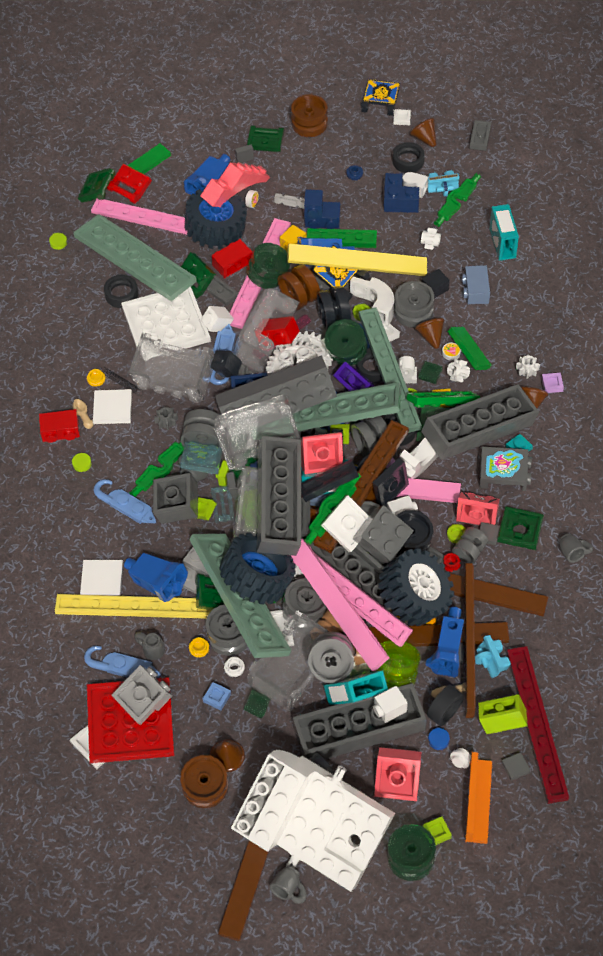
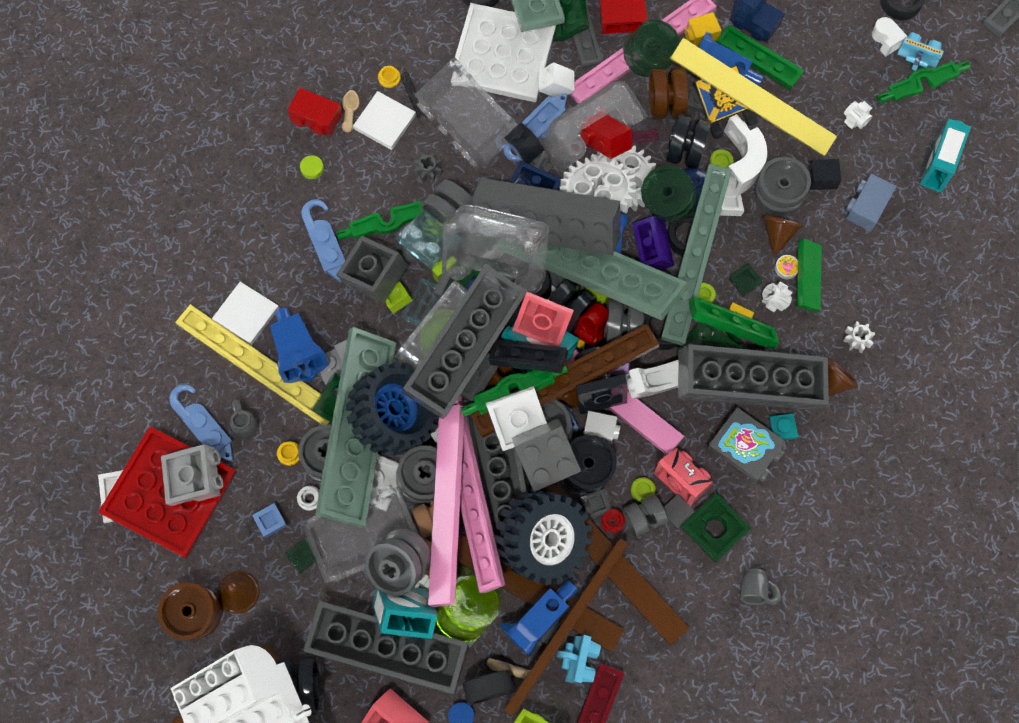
camera: 30 degrees right, 15 degrees up
(352, 451) = (592, 325): none -> red piece
(390, 704) = (422, 655): white brick -> none
(399, 197) = (855, 41): dark blue brick -> none
(408, 369) = (720, 263): white leg -> none
(552, 382) = (873, 373): lavender plate -> none

